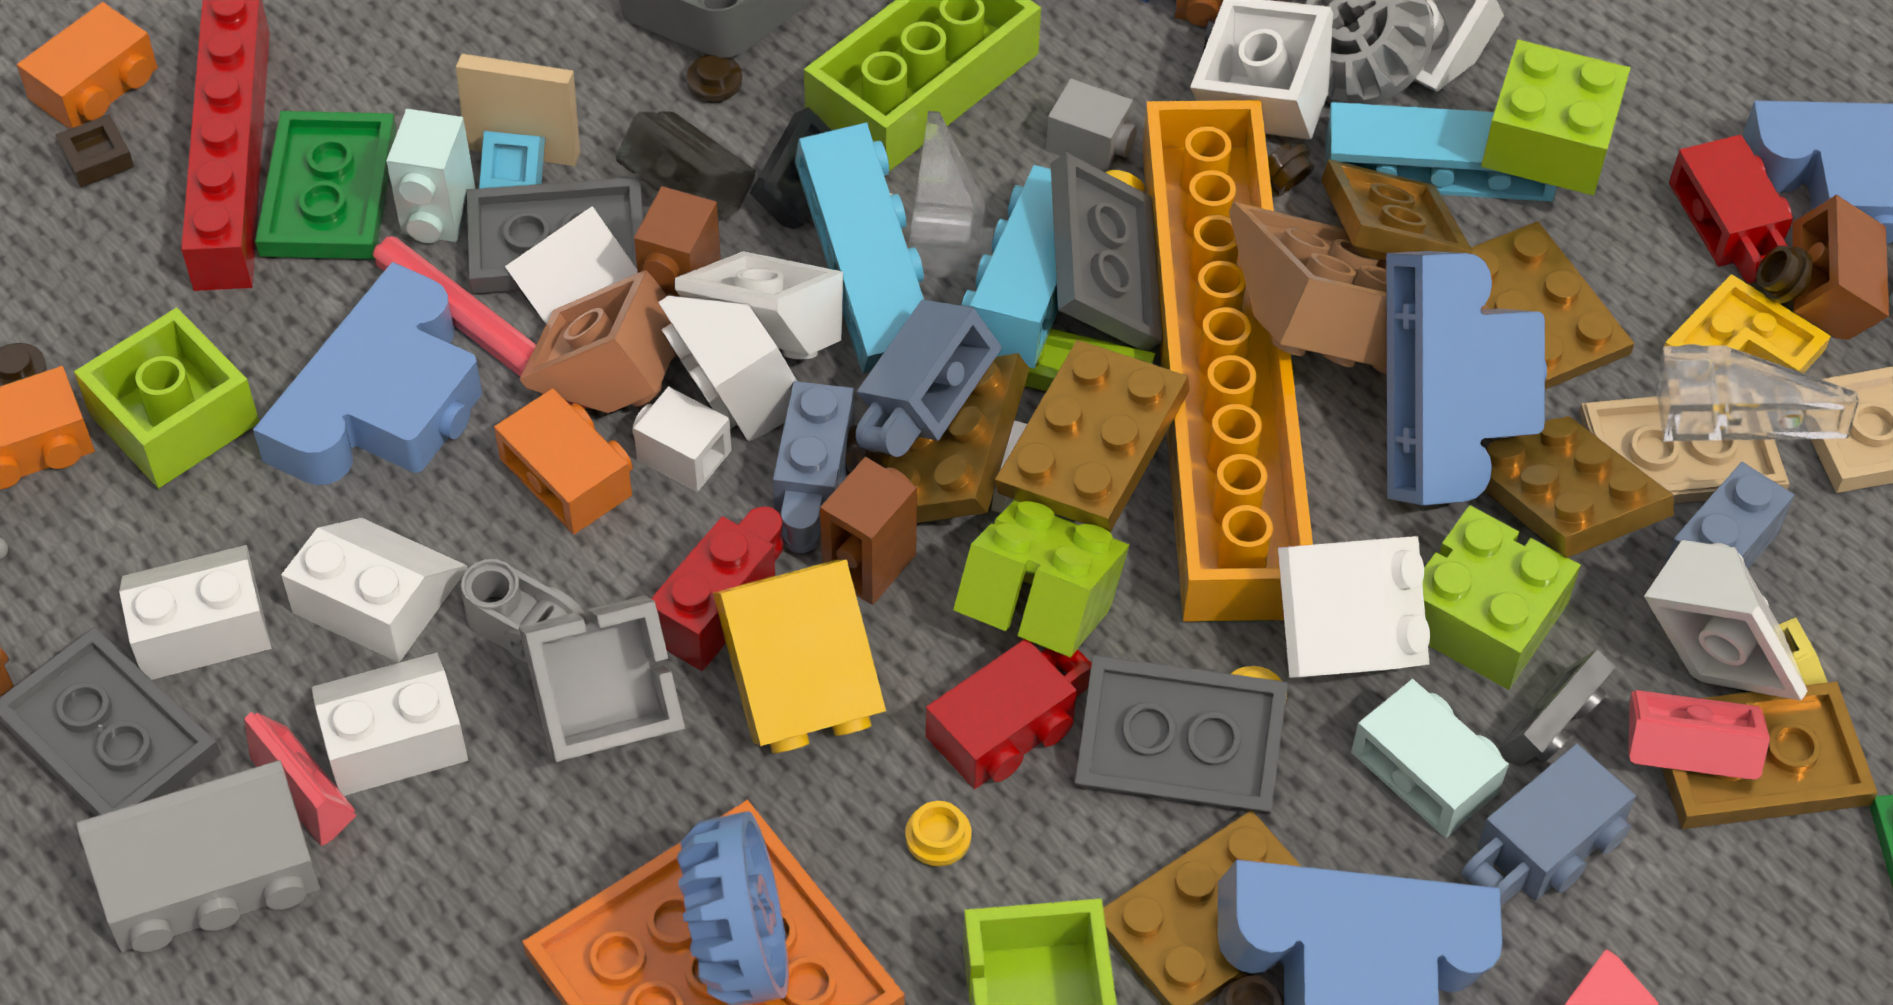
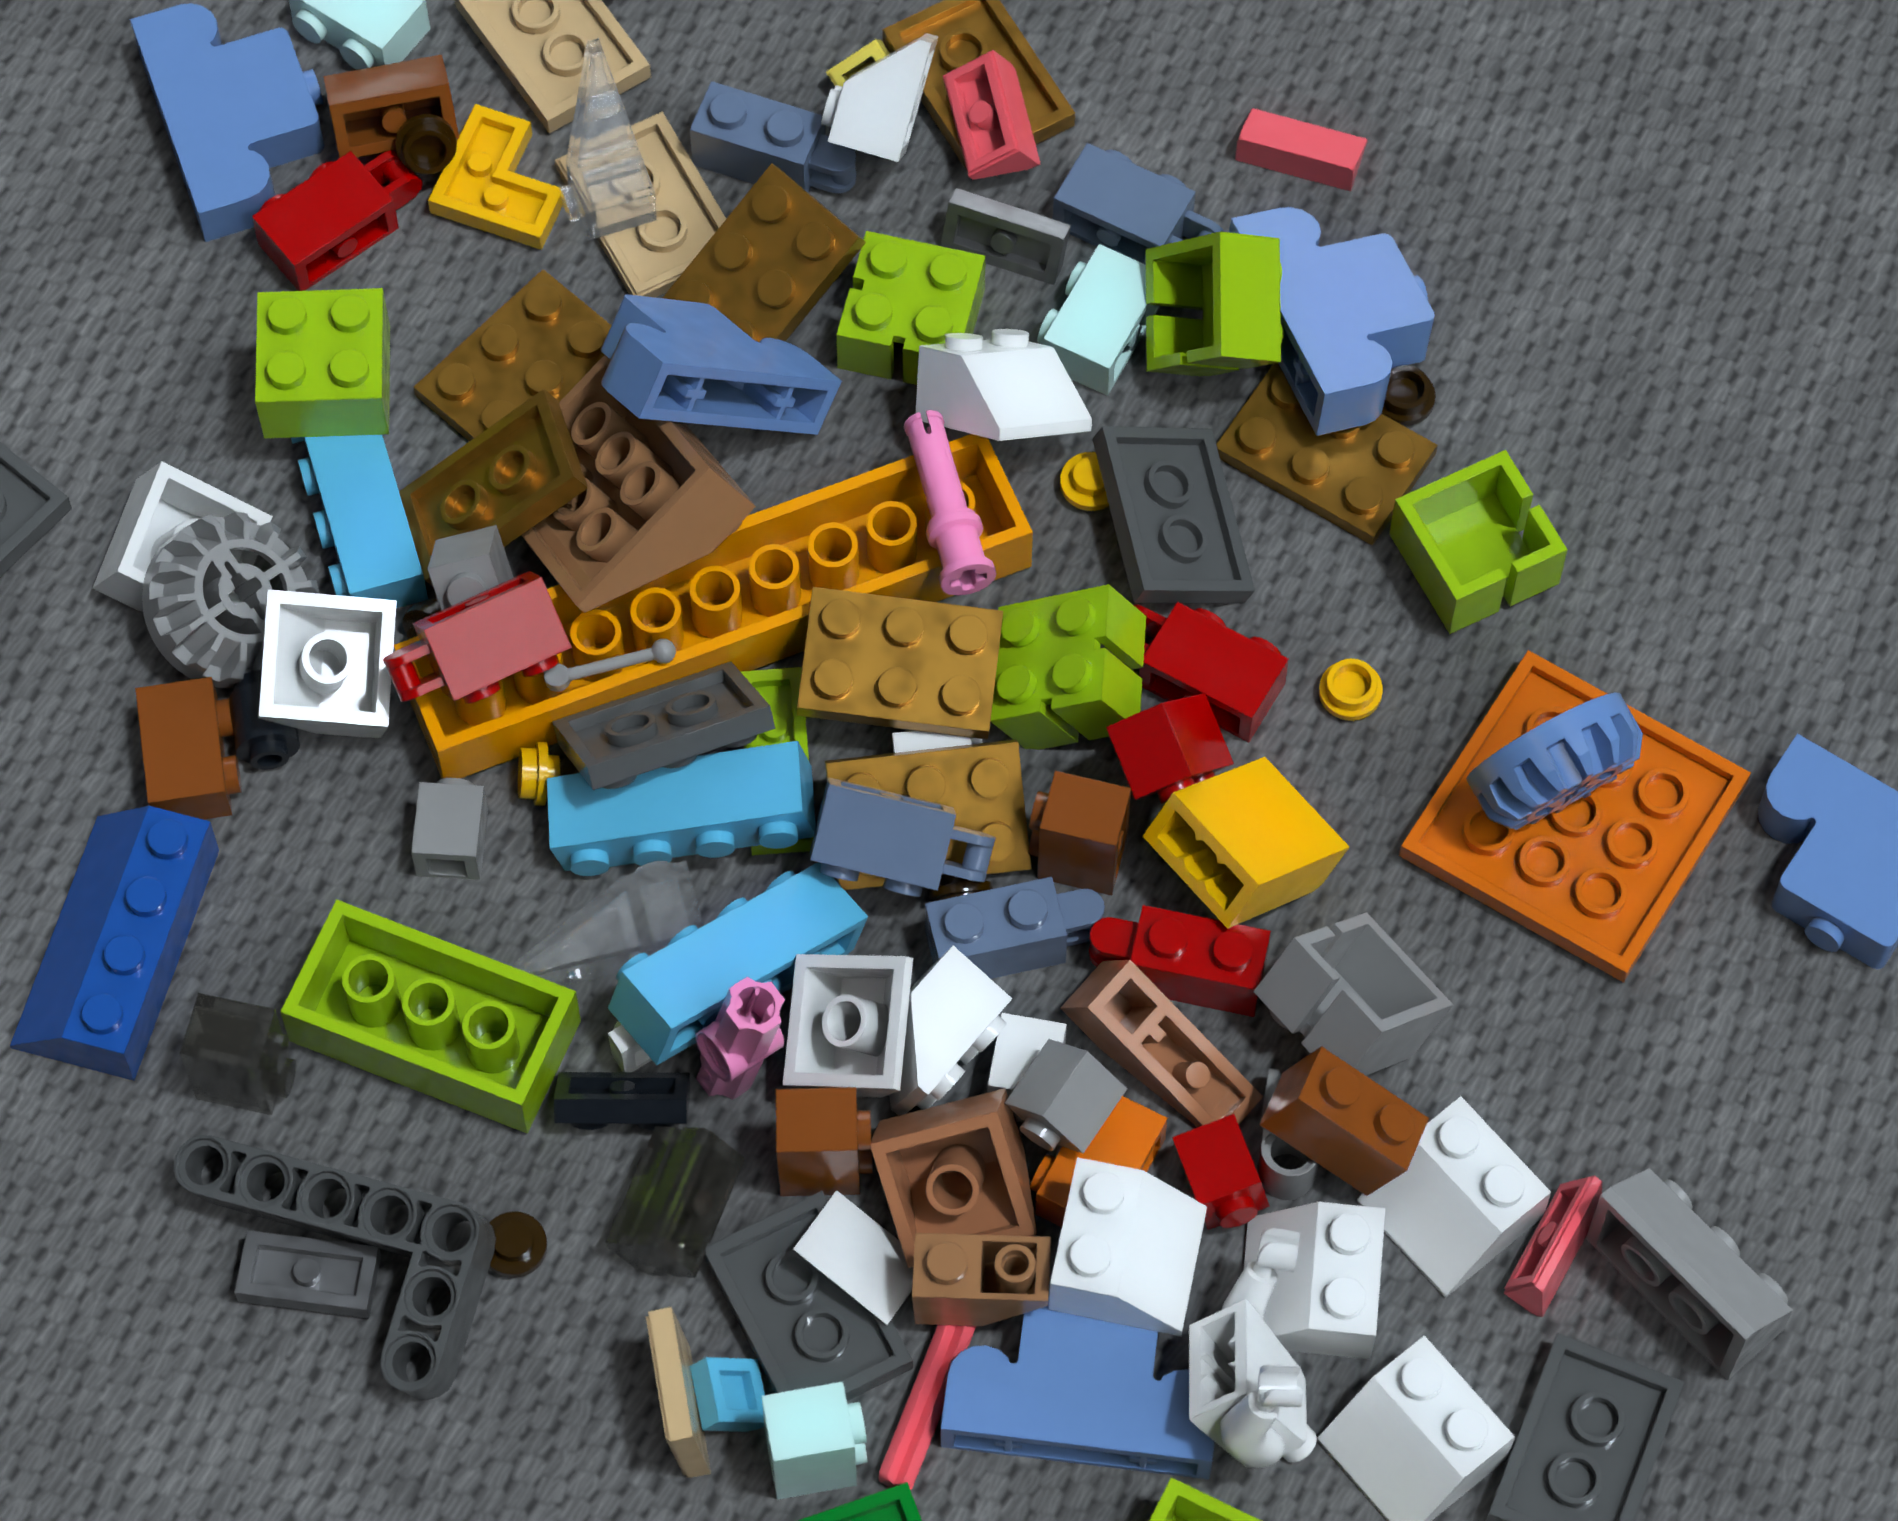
camera: 110 degrees left, 10 degrees up
(289, 463) = (1241, 1376): none -> white torso
(456, 408) = (1126, 1249): none -> white slope
(477, 608) = (1344, 1121): none -> dark orange brick
(499, 306) = (978, 1277): none -> medium nougat slope
(506, 530) = (1221, 1172): none -> red brick
(616, 416) = (1064, 1097): none -> light grey brick
(645, 536) = (1158, 1044): none -> nougat slope
(783, 204) = (740, 1038): none -> bright pink piece
(913, 612) = (1170, 746): none -> red brick
(1179, 192) = (560, 676): none -> light grey hinge
(1209, 500) = (953, 526): none -> bright pink pin
(1222, 128) = (482, 642): none -> brick
(1304, 161) = (468, 565): none -> light grey brick
(1381, 818) = (1237, 288): none -> lime piece

